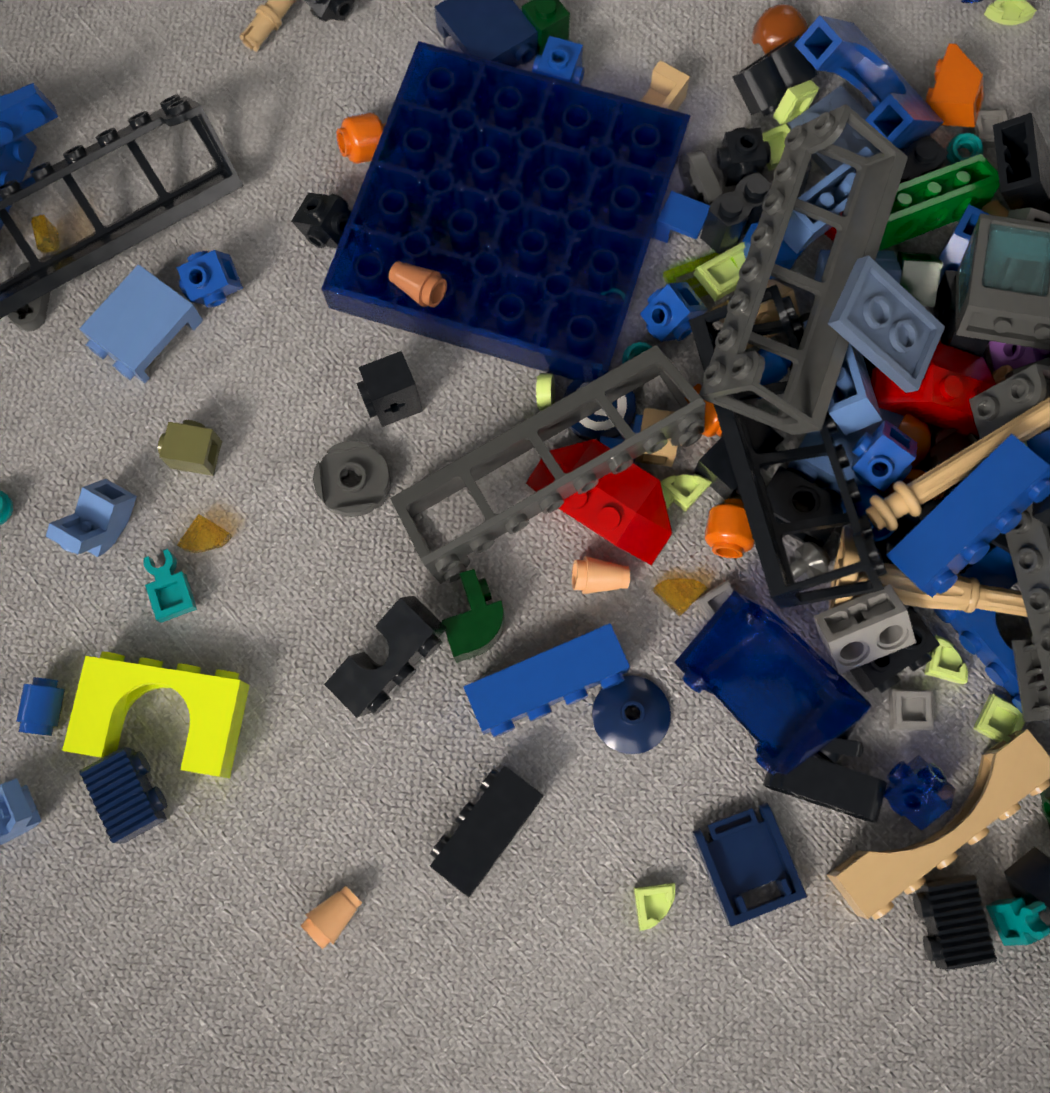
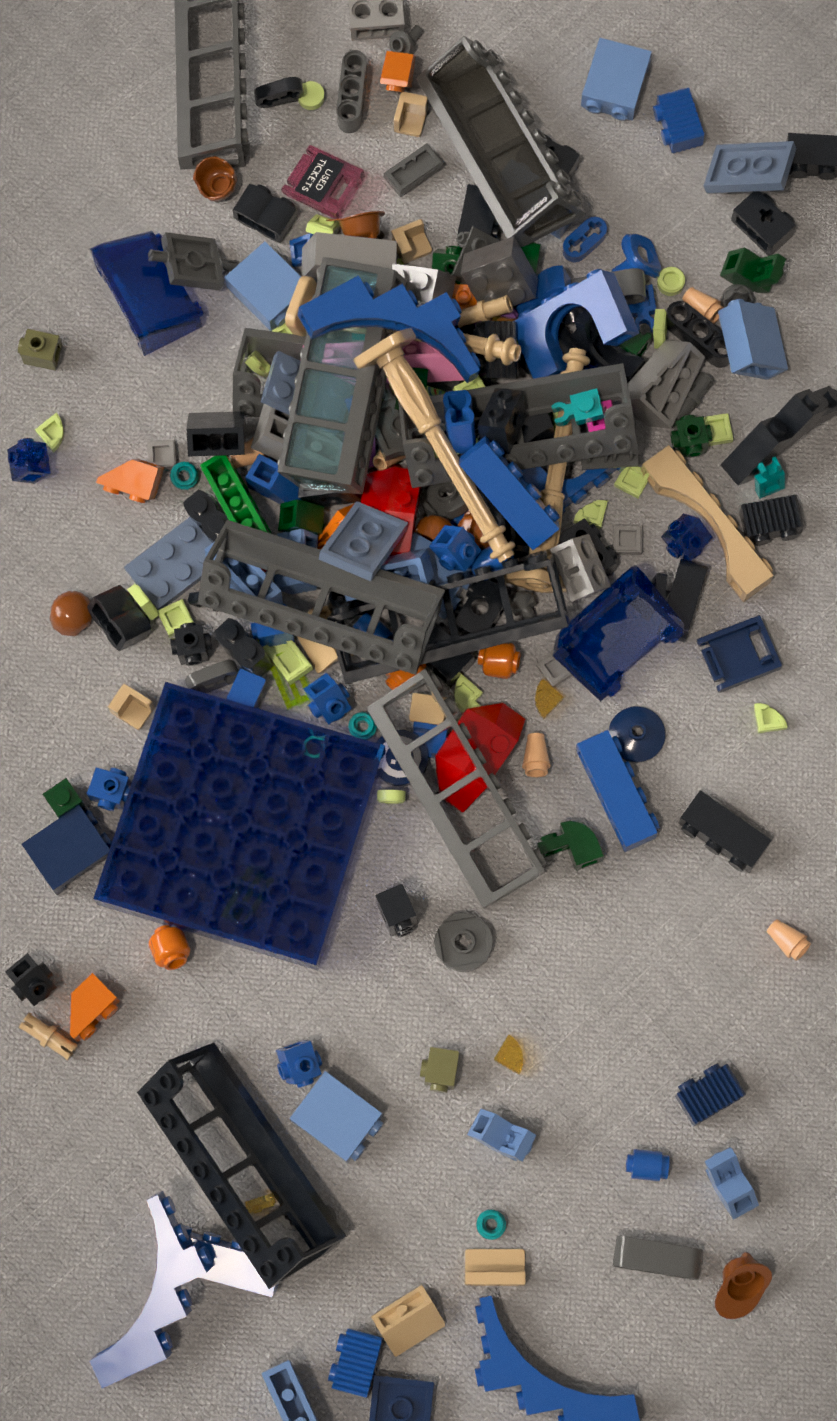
camera: 90 degrees left, 0 degrees up
(112, 686) = (630, 1111): neon yellow arch -> none
(170, 592) = (557, 1076): teal plate -> none
(299, 55) = (89, 1005): none -> orange slope
(322, 219) = (247, 972): black brick -> none
(410, 634) = (623, 920): black arch -> none
(419, 283) = (316, 886): nougat cone -> none
(846, 51) = (155, 519): blue arch -> none

